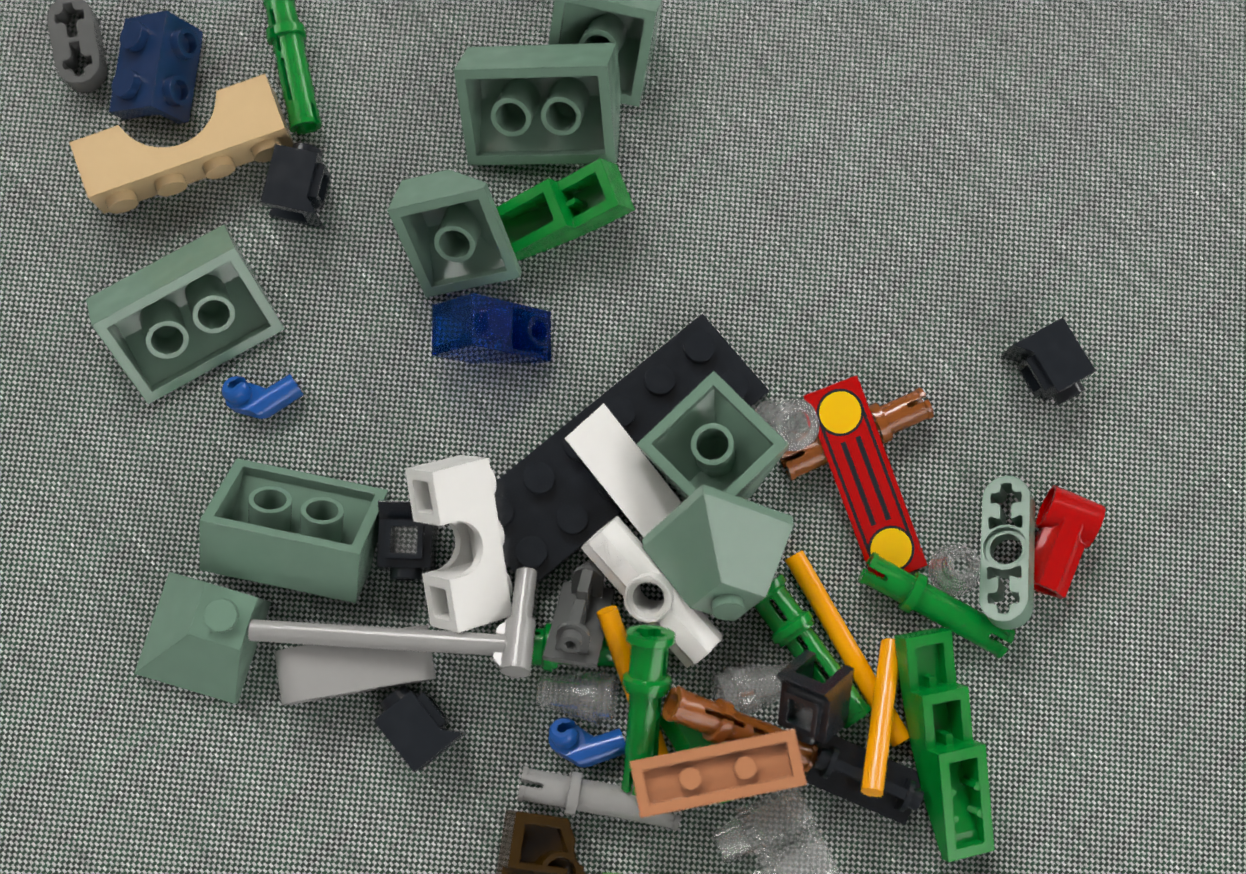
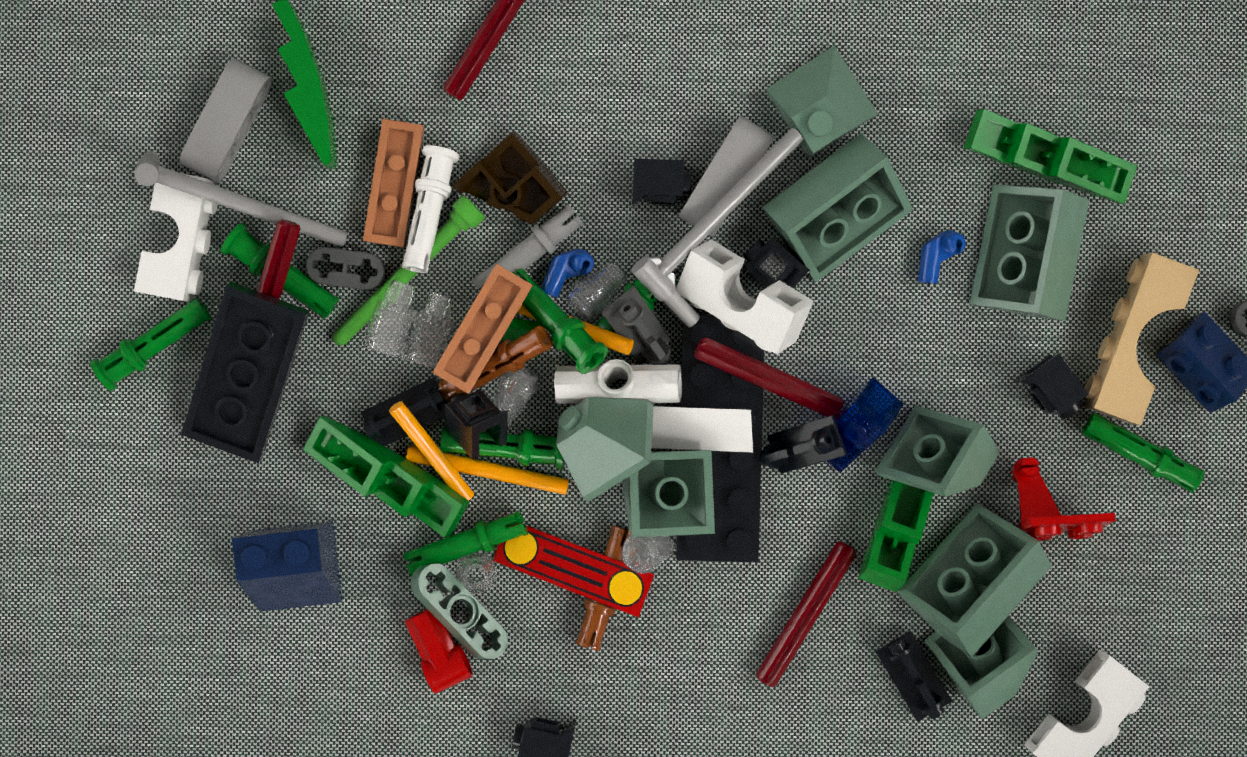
camera: 135 degrees right, 10 degrees up
(74, 373) = (1050, 156): none -> green slope
(426, 96) = (1039, 512): none -> red plate
(519, 453) = (768, 377): none -> dark red axle
(554, 363) = (803, 445): none -> black hinge
(680, 85) = (914, 677): none -> black hinge
(710, 229) = (806, 614): none -> dark red axle
(1119, 763) = (288, 566): none -> dark blue slope

